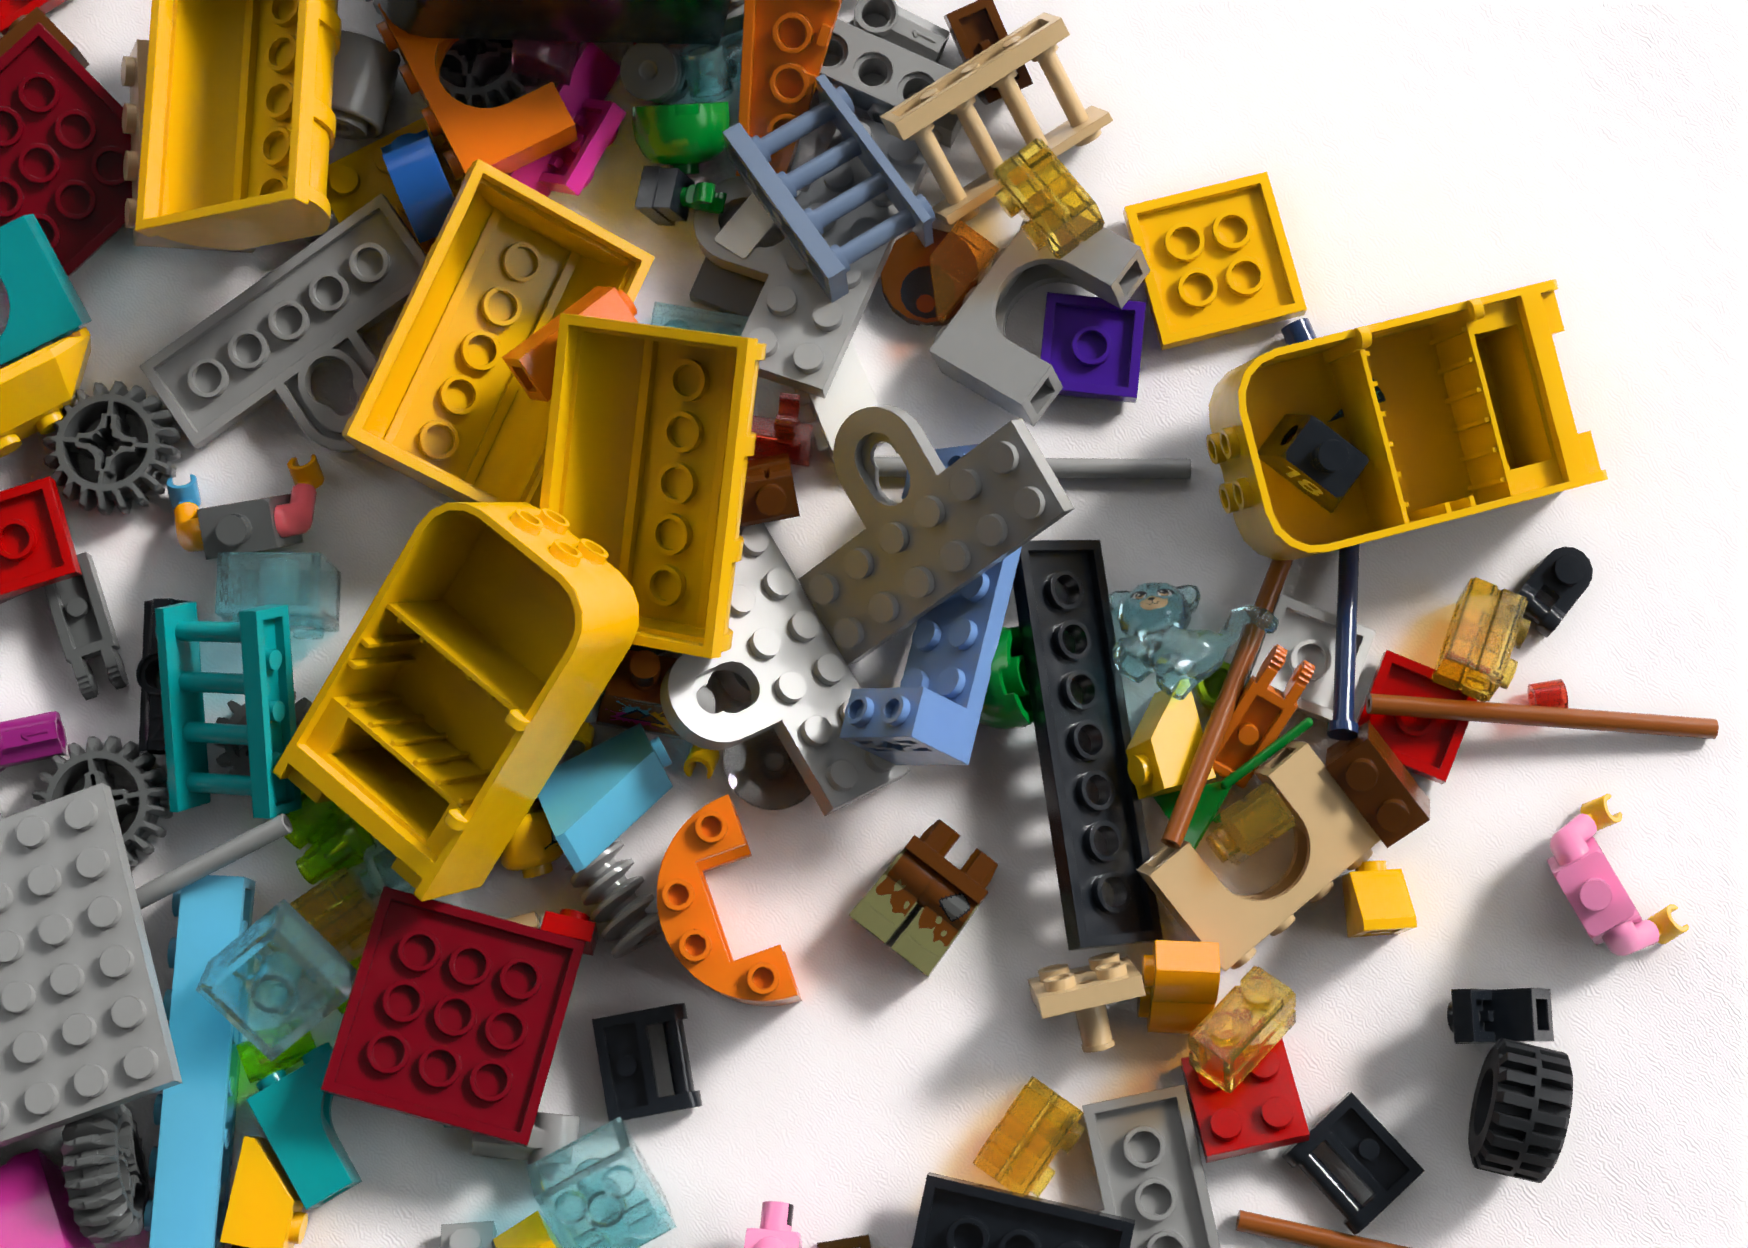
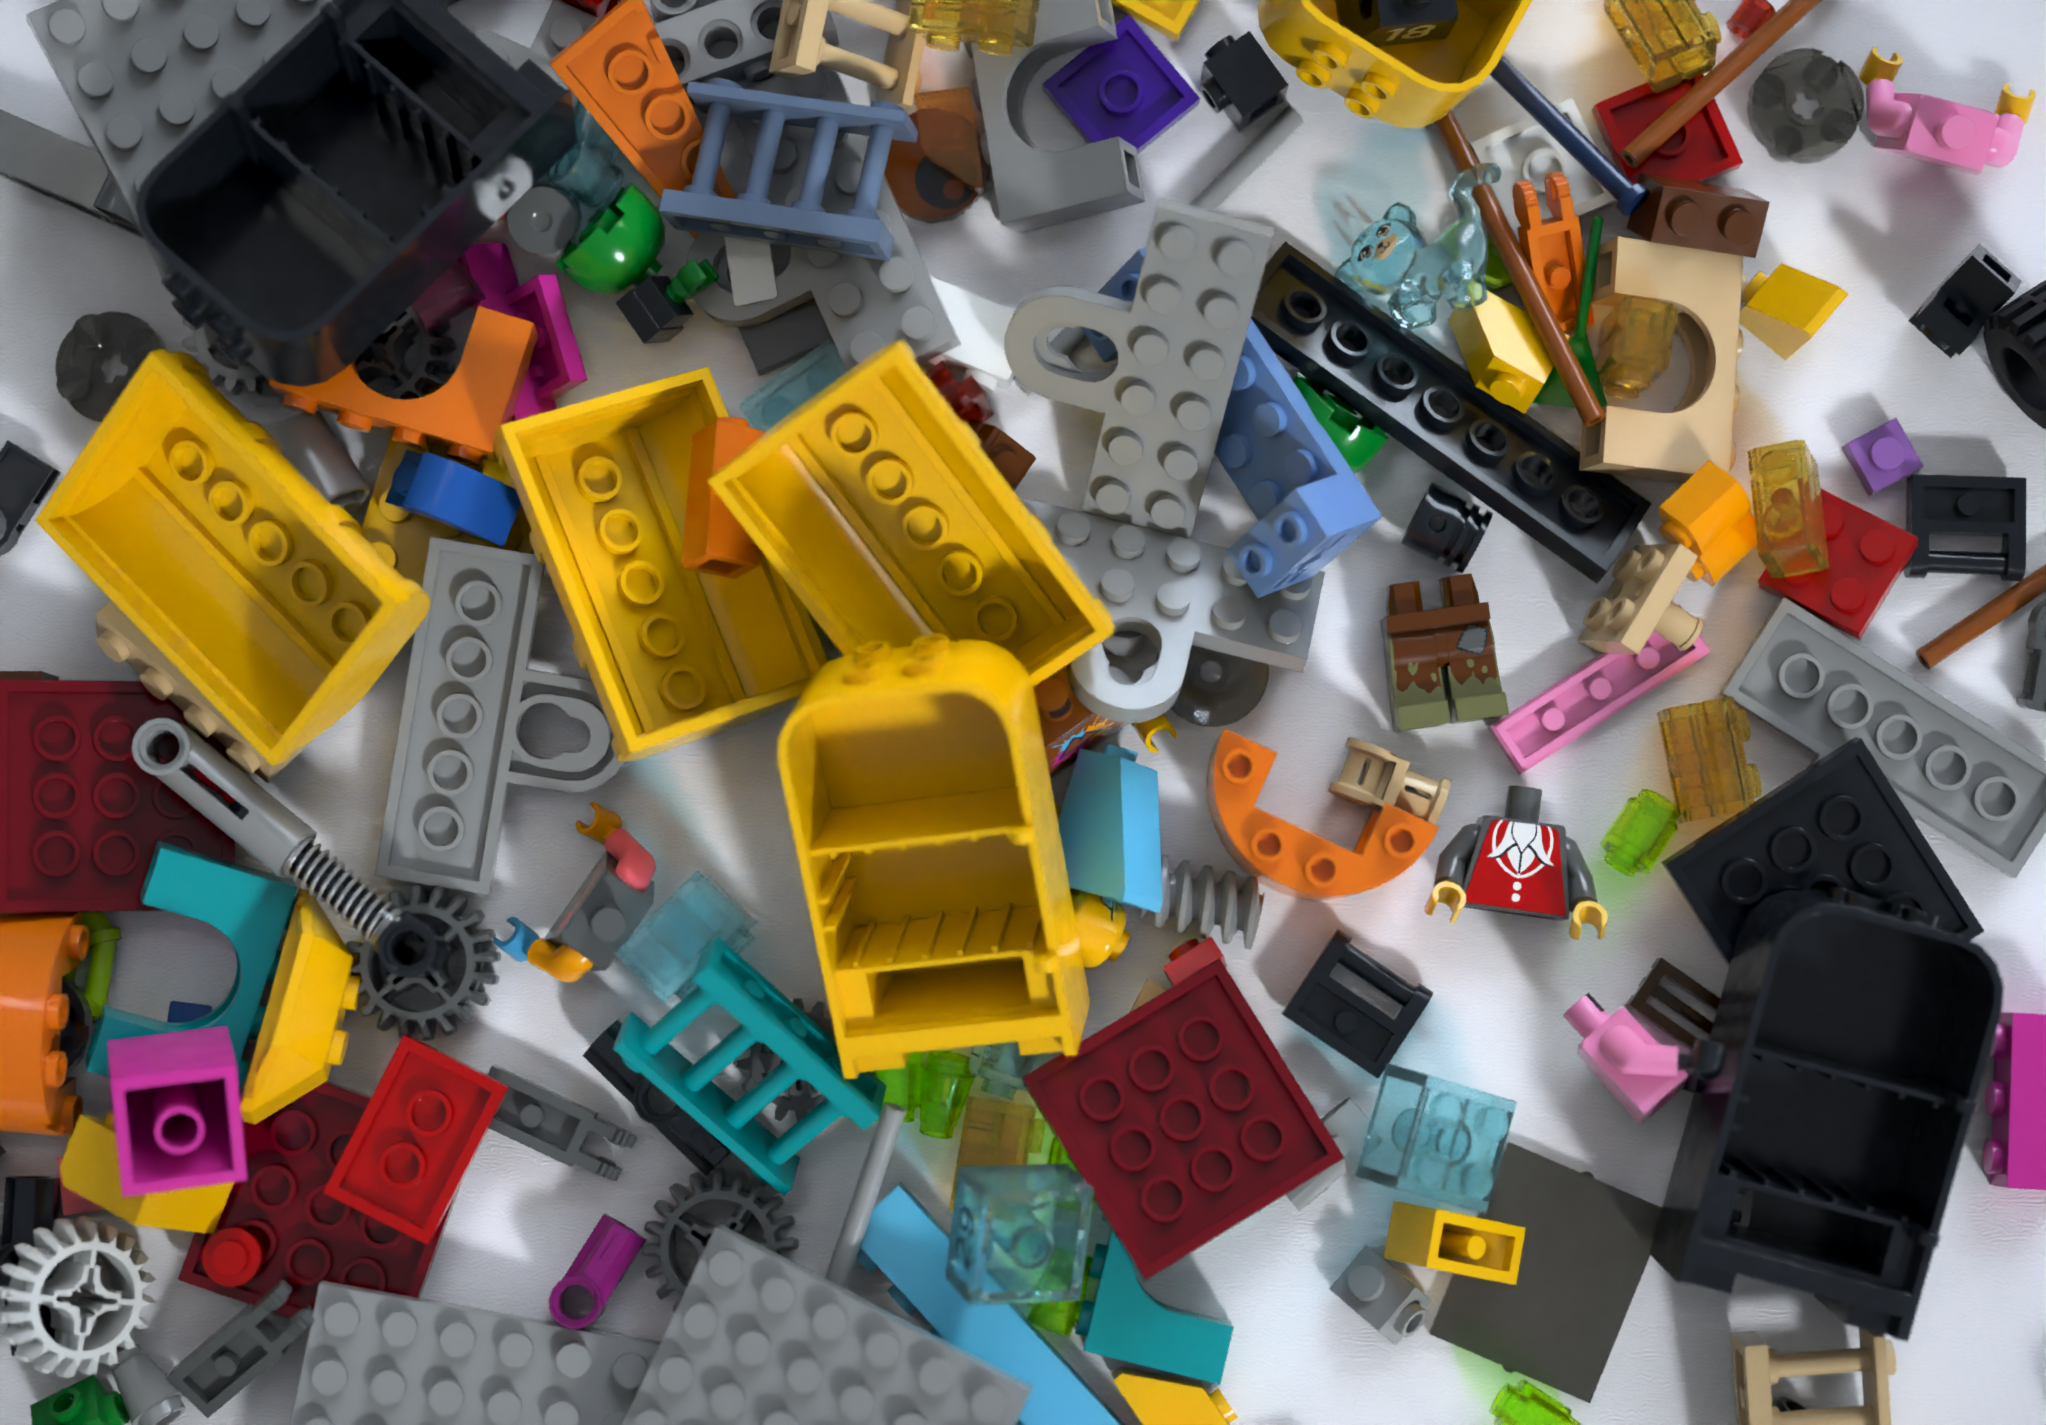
camera: 45 degrees left, 5 degrees up
(101, 290) = (283, 843): none -> piece
(810, 940) = (1385, 782): none -> tan connector
(833, 1080) = (1518, 868): none -> torso
(937, 1141) = (1640, 833): none -> clear neon green brick
(997, 1023) = (1588, 699): none -> bright pink tile
(1016, 832) = (1458, 536): none -> black piece
(1174, 412) = (1241, 80): none -> black brick
(1346, 1062) = (1882, 456): none -> medium lavender plate
(1552, 777) = (1819, 77): none -> clear smoke plate

